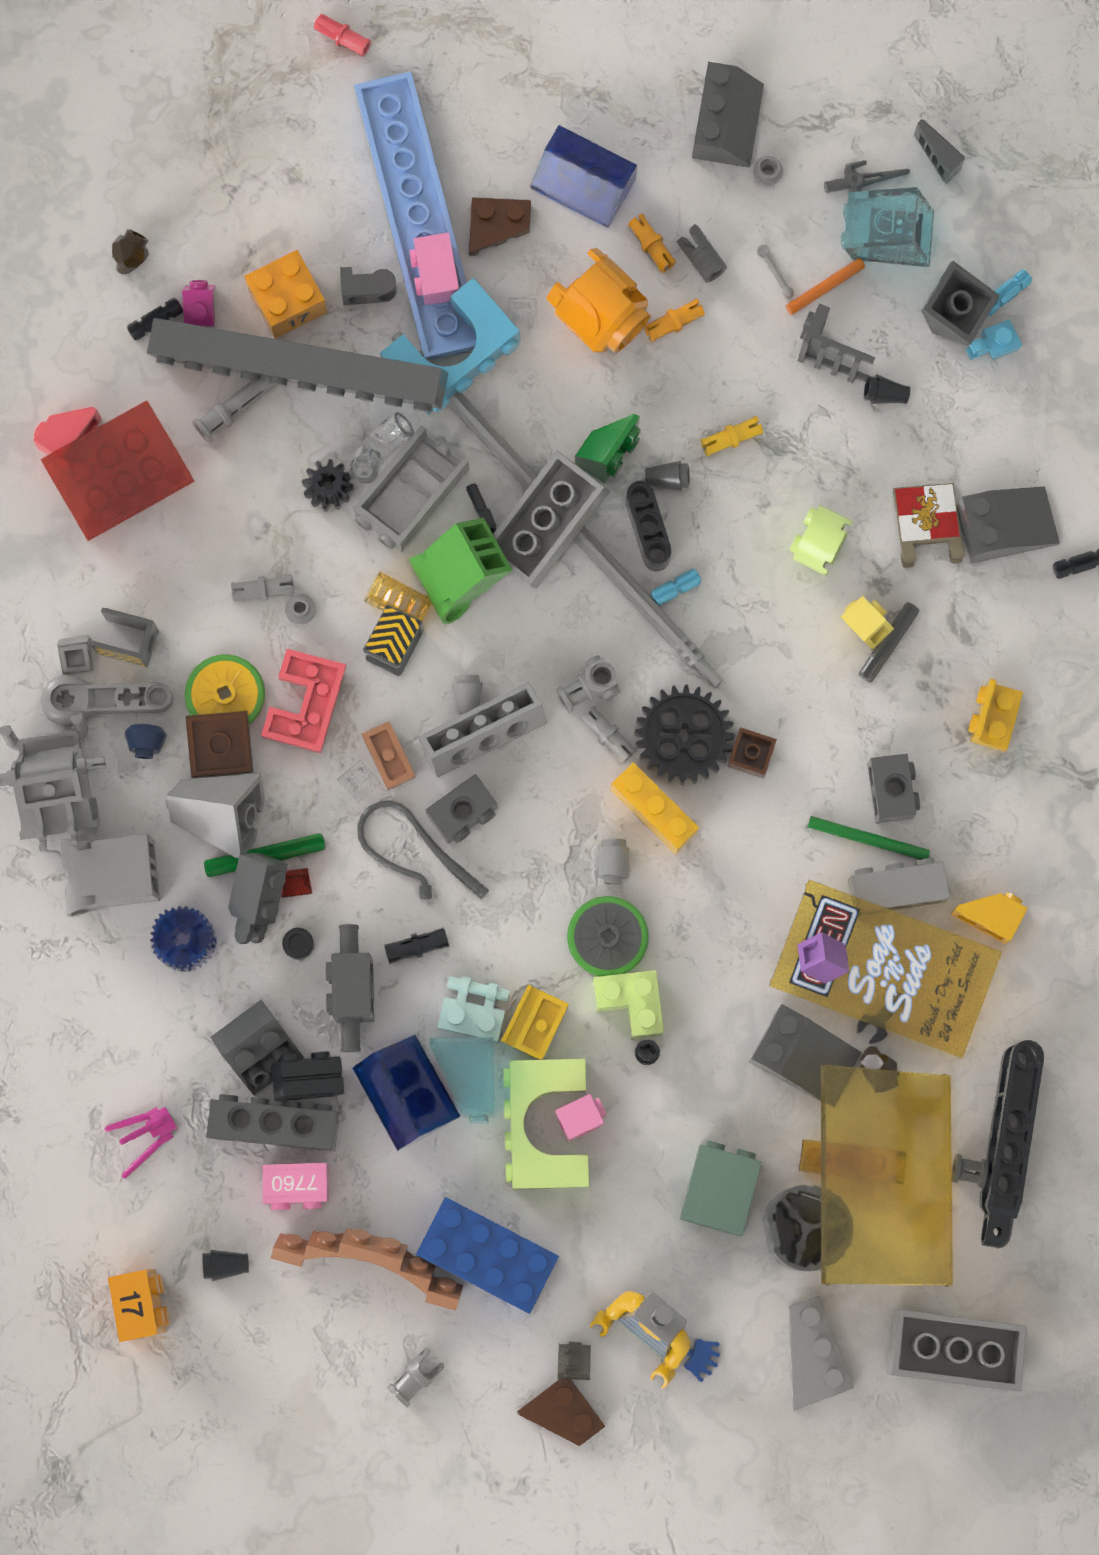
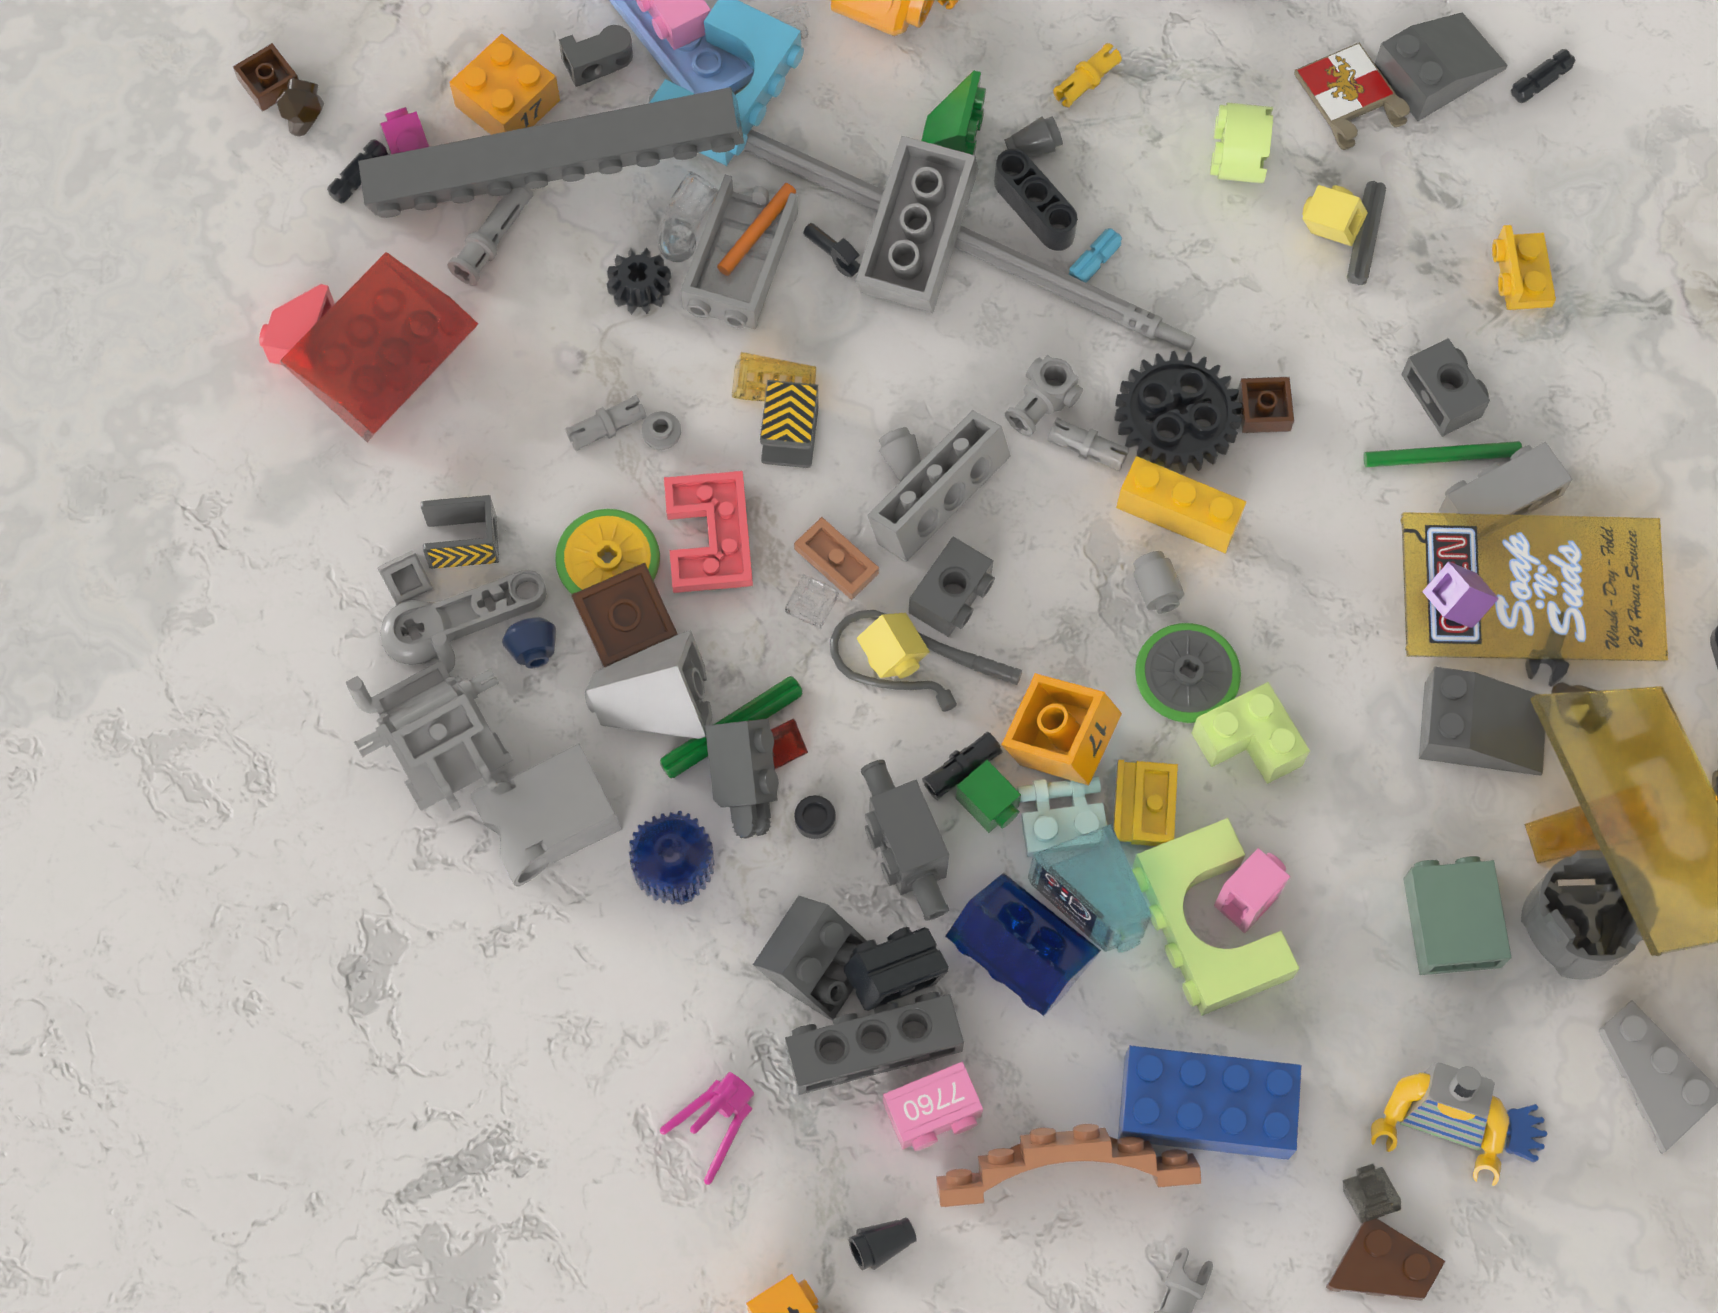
camera: 20 degrees left, 10 degrees down
(113, 217) = (264, 75): none -> reddish brown piece
(401, 839) = (893, 646): none -> light yellow brick
(425, 977) = (989, 797): none -> green brick
(430, 475) = (755, 230): none -> orange bar
(460, 567) = (837, 312): bright green piece -> none
(494, 948) = (1061, 728): none -> light orange brick
(652, 1046) = (1301, 782): black pin -> none
(994, 915) = (1628, 486): yellow slope -> none

